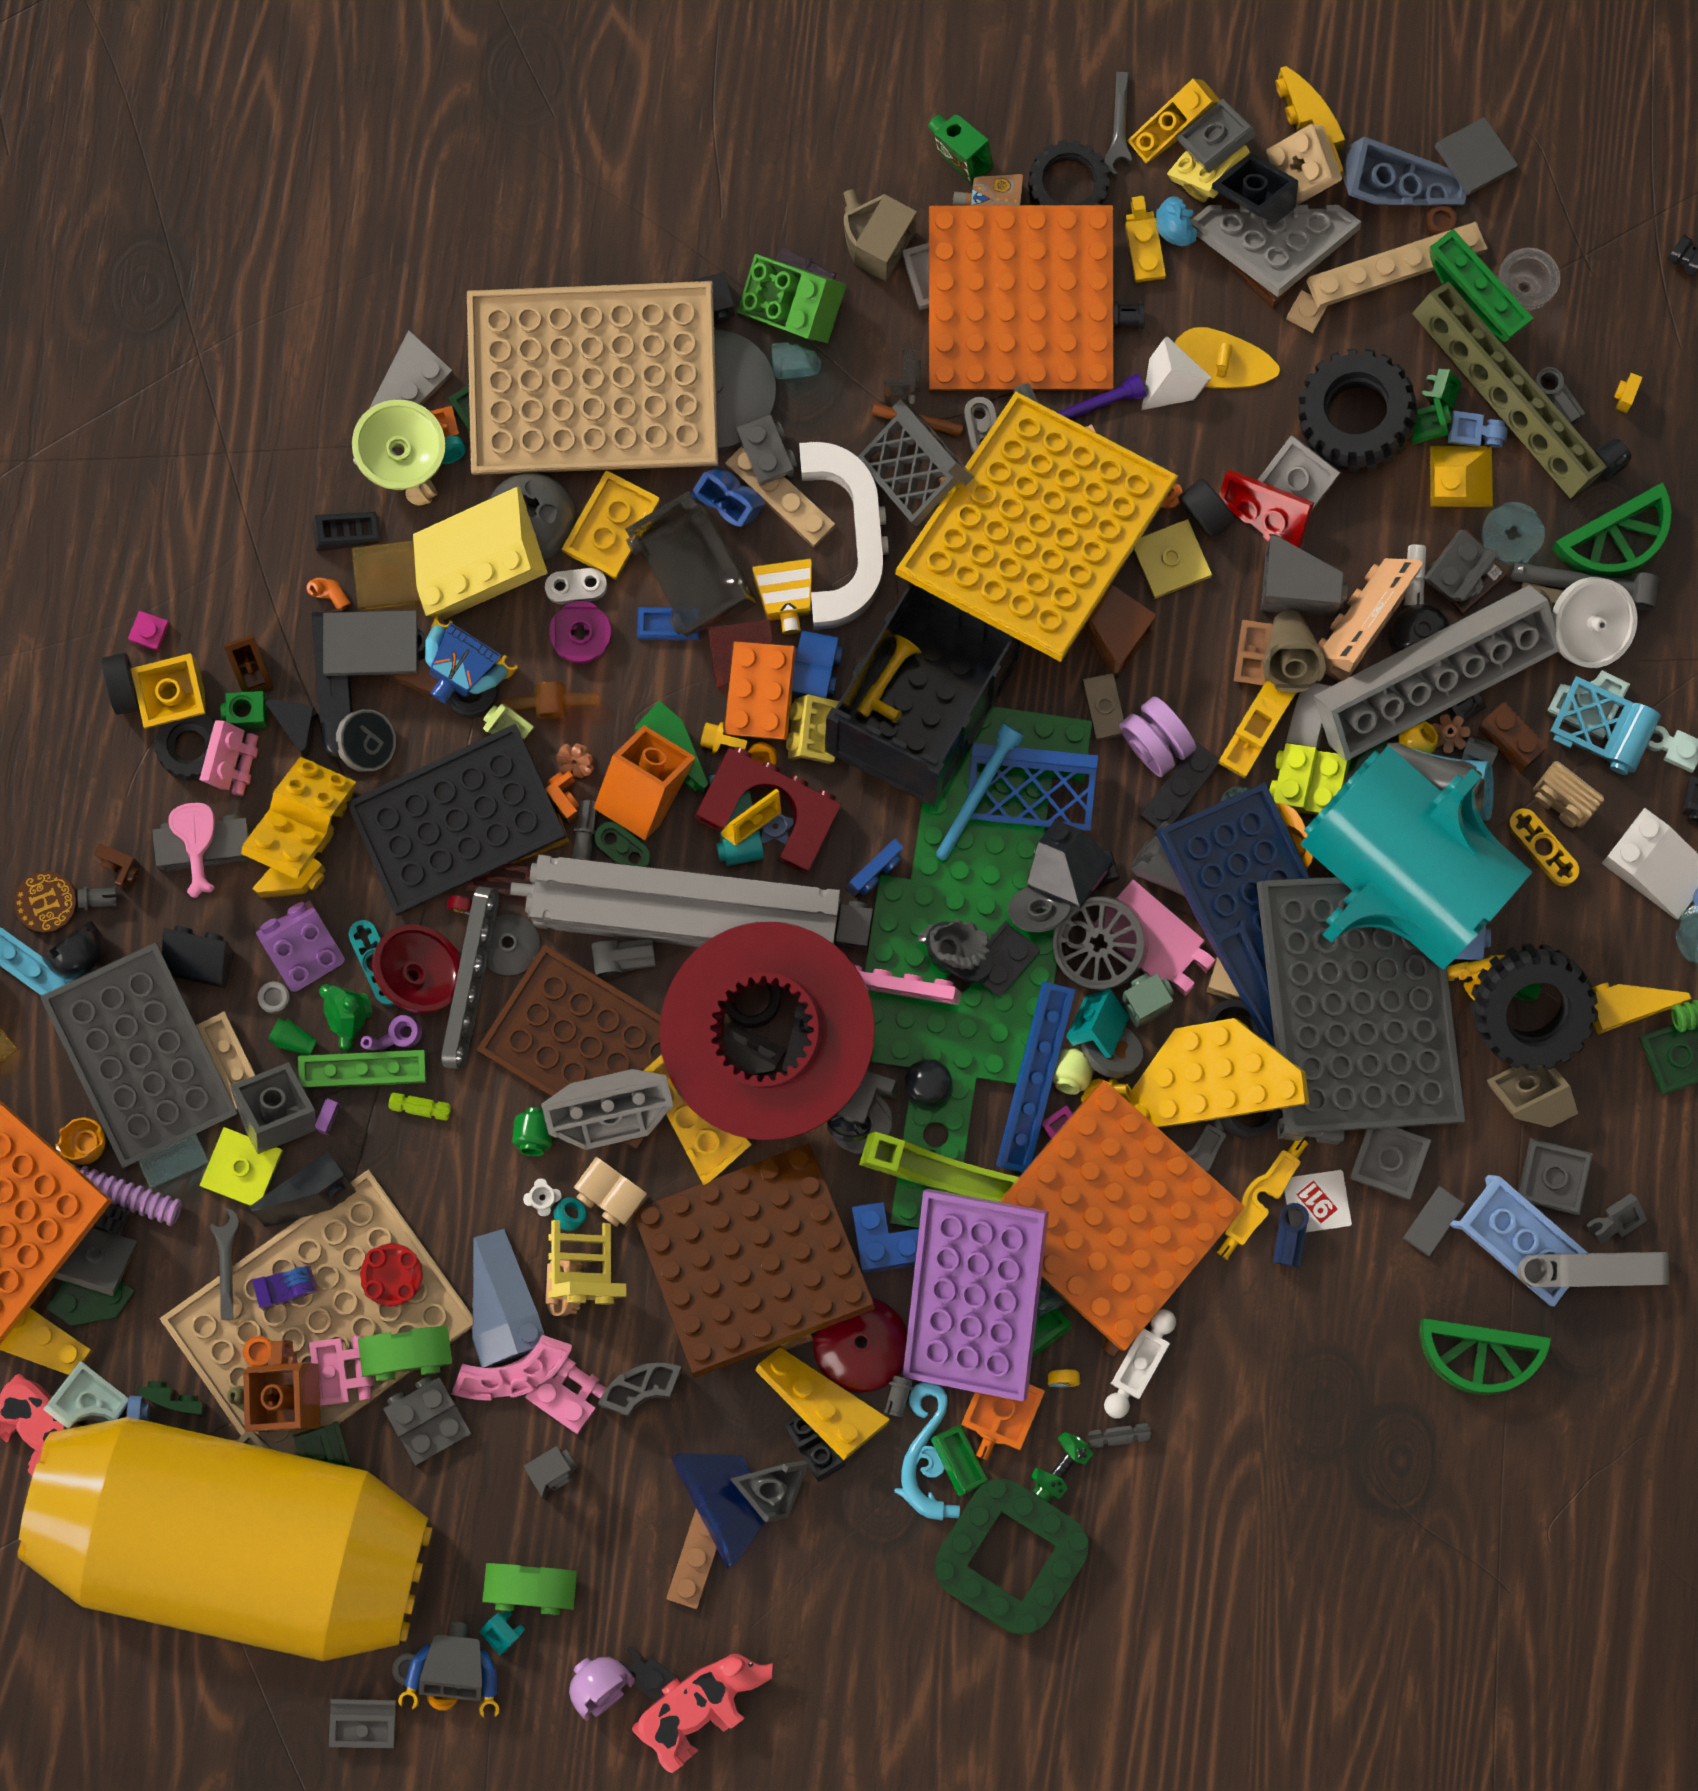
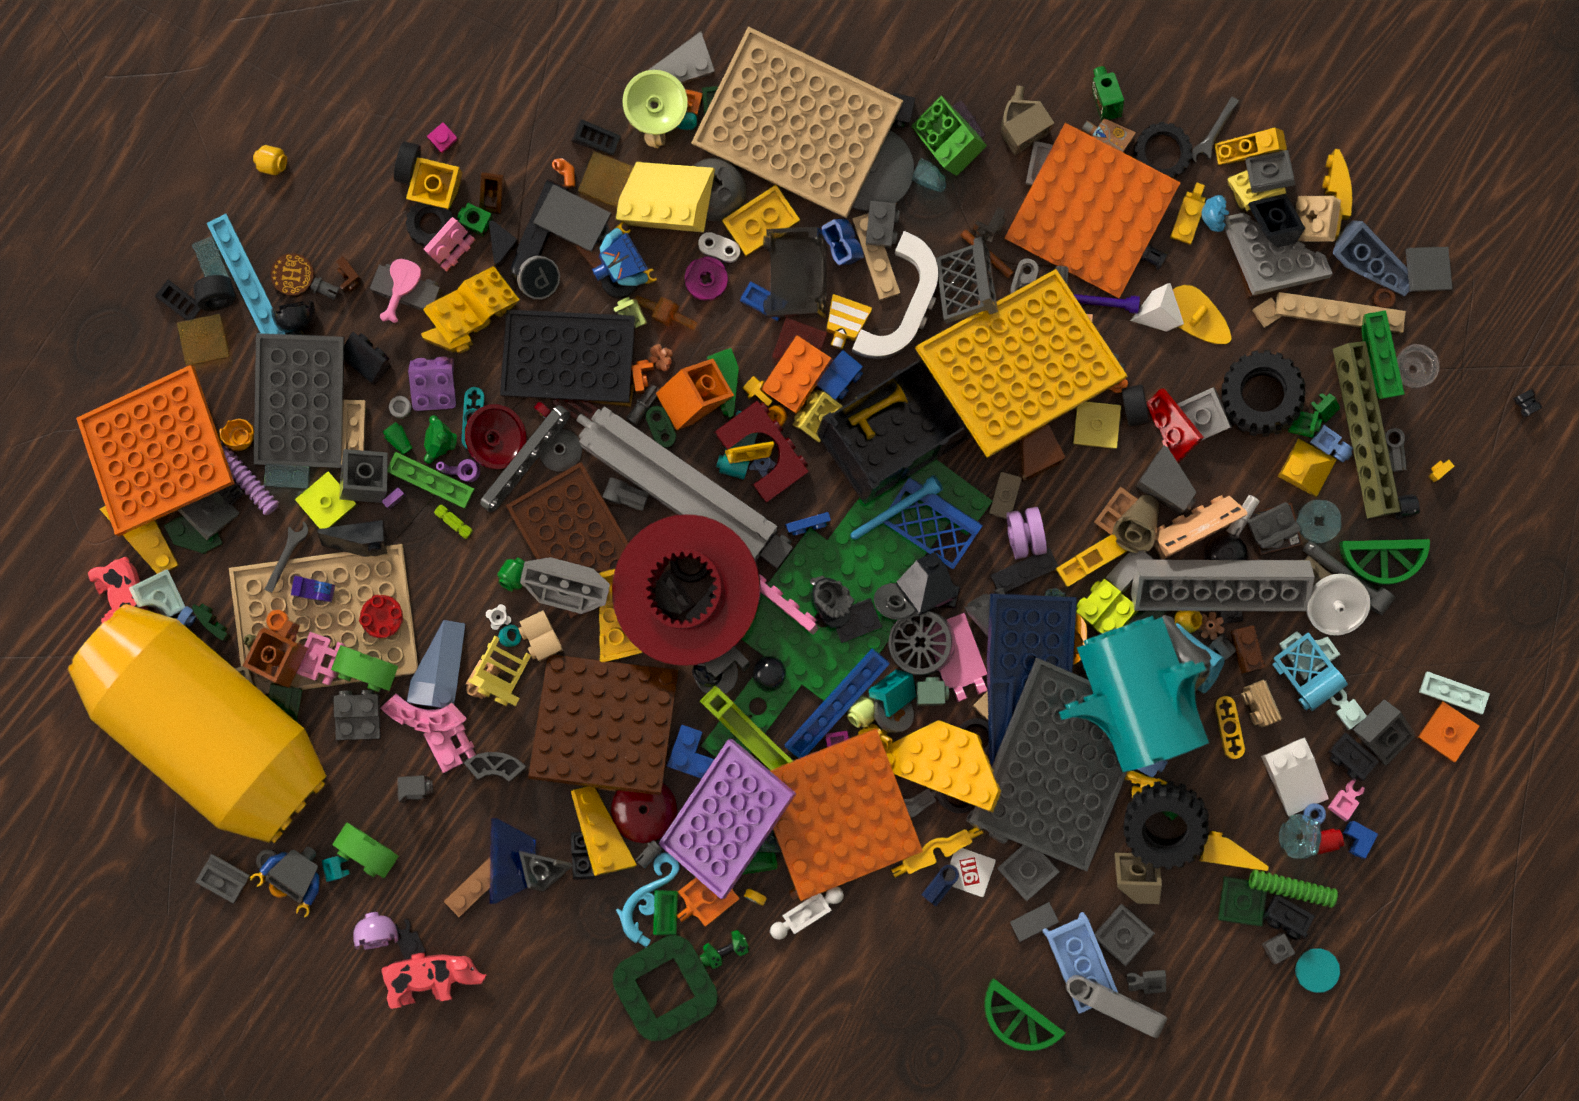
camera: 25 degrees right, 5 degrees up
(1119, 1435) = (770, 949): dark grey axle -> none

